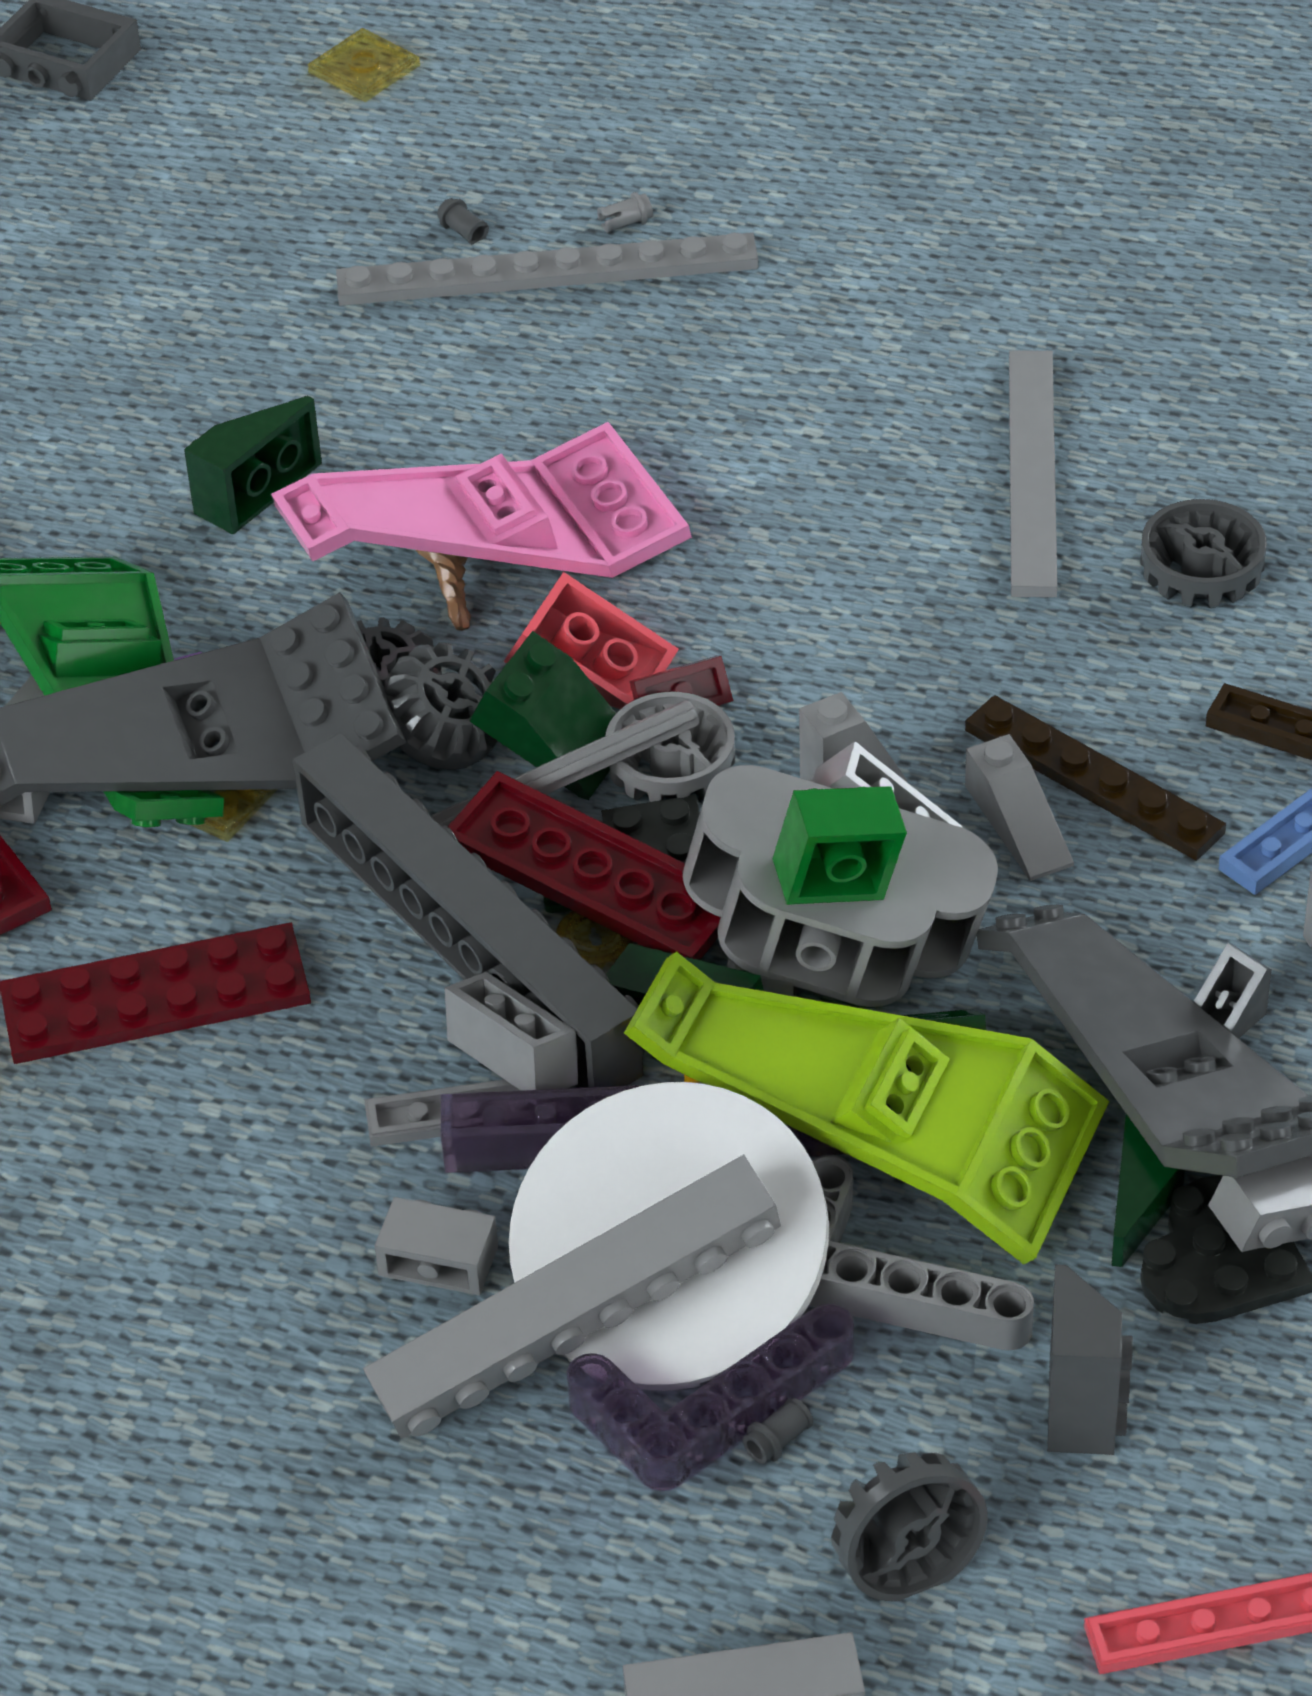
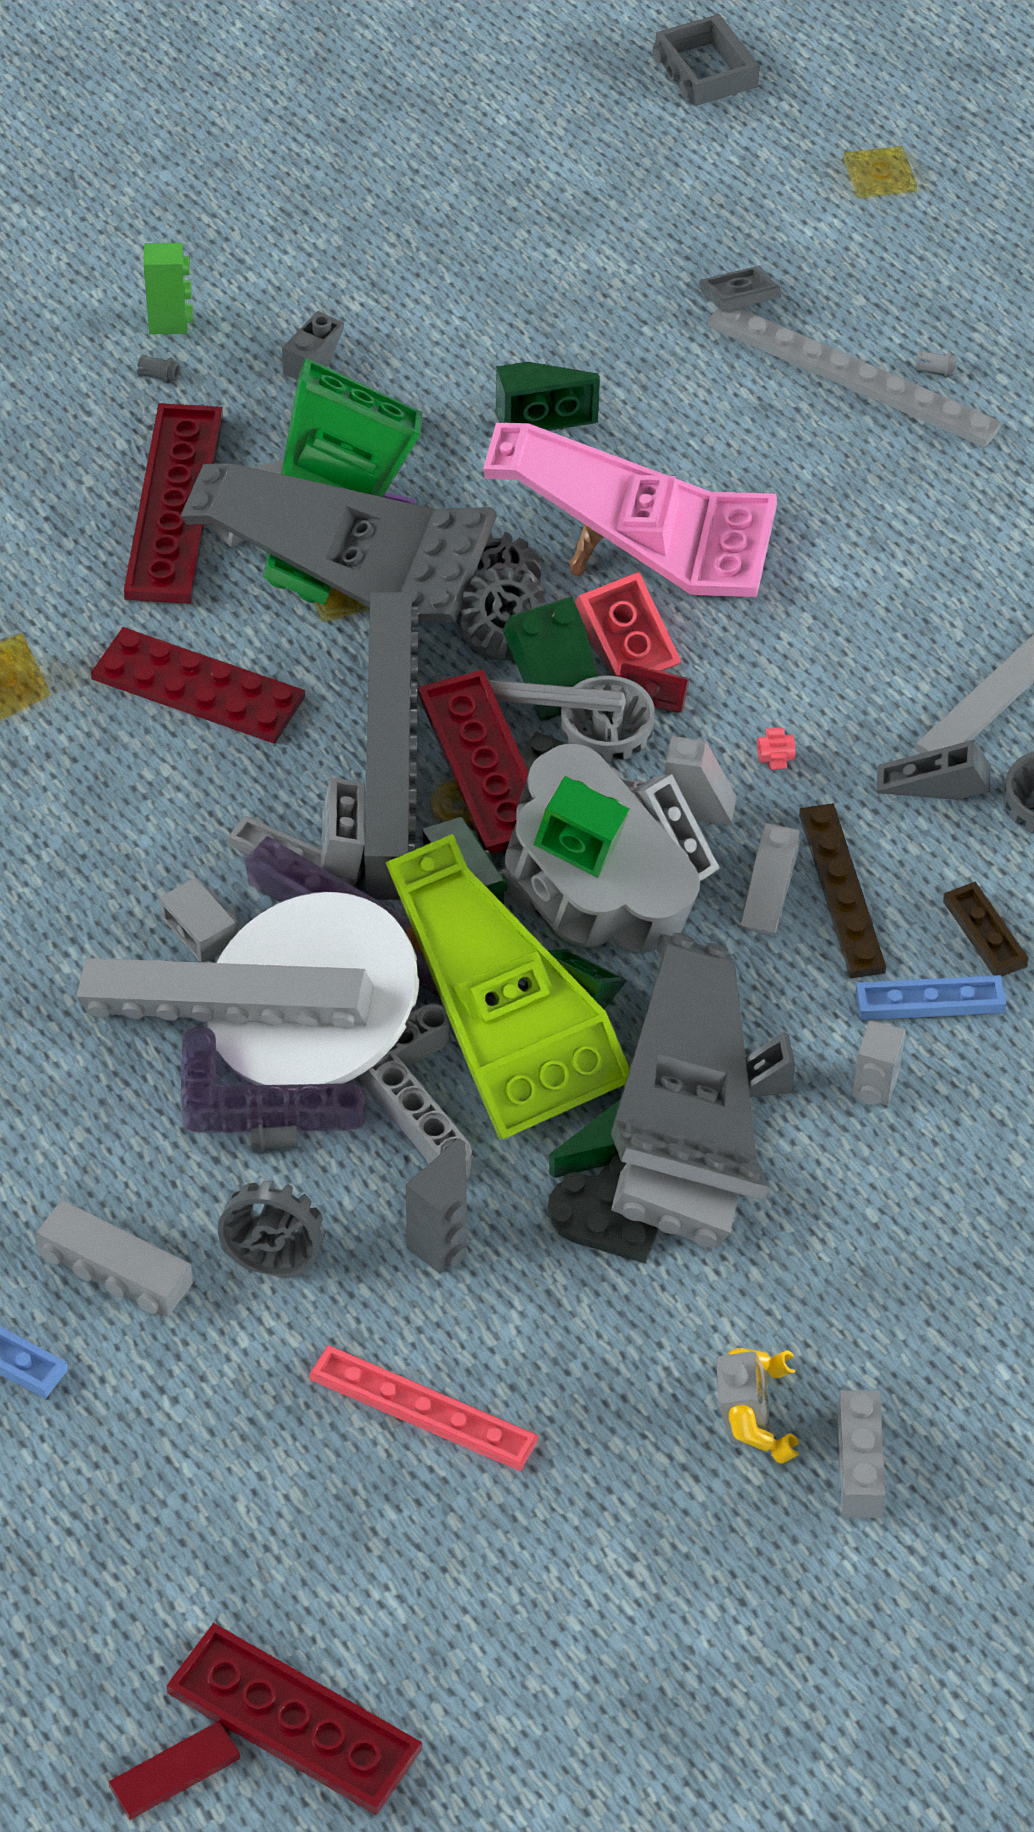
camera: 35 degrees right, 5 degrees up
(342, 247) = (739, 288): none -> dark grey tile
(454, 214) = (831, 306): dark grey pin -> none
(880, 674) = (776, 748): none -> coral gear
(1070, 601) = (941, 773): none -> dark grey slope

